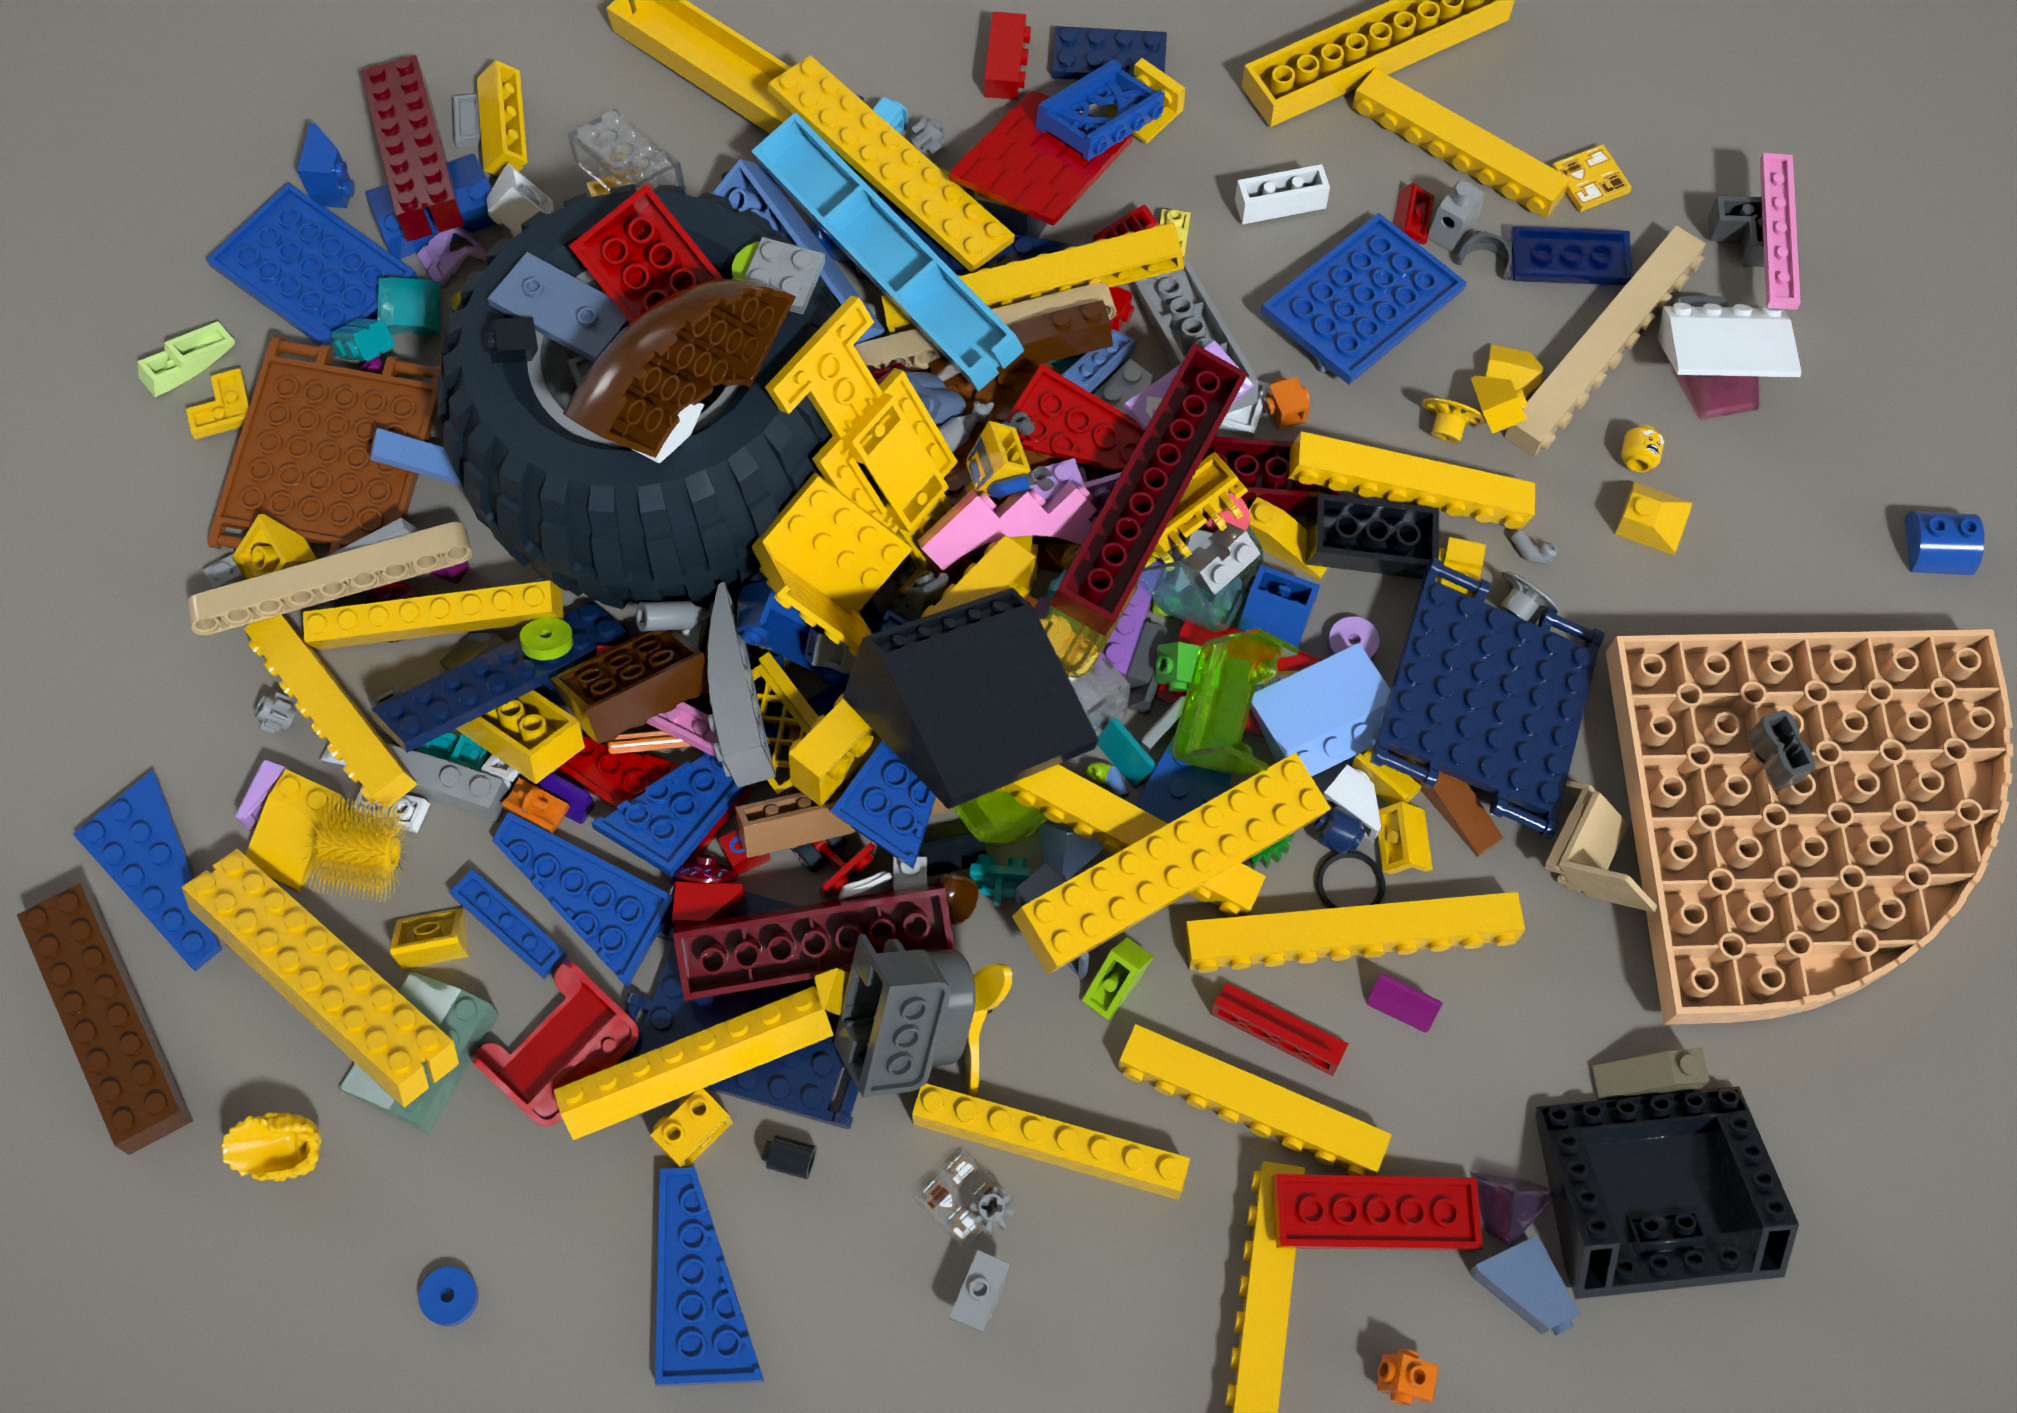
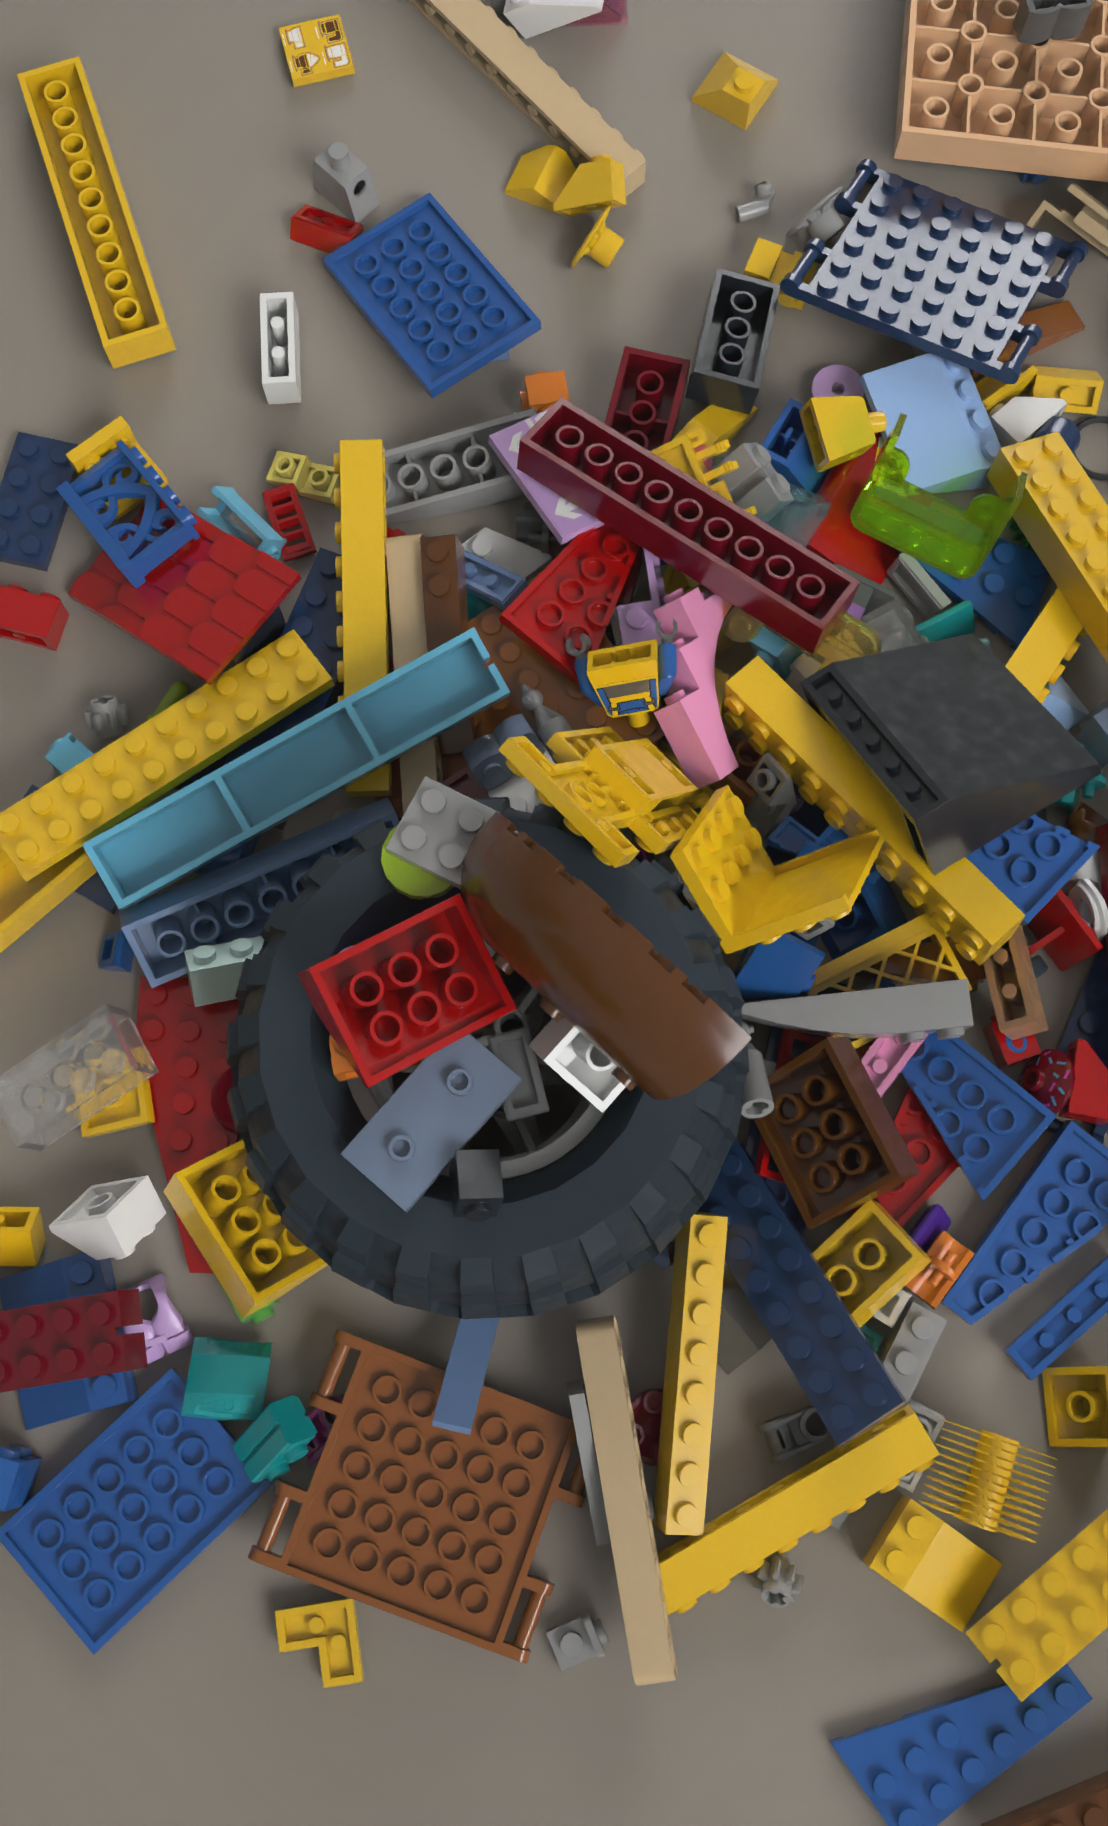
camera: 80 degrees left, 10 degrees up
(184, 358) = (240, 1688): yellowish green slope -> none
(257, 794) = (873, 1594): lavender slope -> none
(284, 549) = (571, 1573): yellow slope -> none
(546, 638) = (766, 1231): lime piece -> none
(1110, 196) = (239, 519): none -> medium azure window
(1176, 665) = (862, 555): bright green brick -> none
(1294, 621) = (839, 429): none -> yellow torso
(1411, 480) = (679, 289): yellow brick -> none
(1460, 143) = (245, 162): yellow brick -> none
(1492, 243) = (389, 152): dark grey helmet -> none
(1571, 255) = (413, 90): clear blue plate -> none
(1642, 448) = (662, 75): yellow head -> none

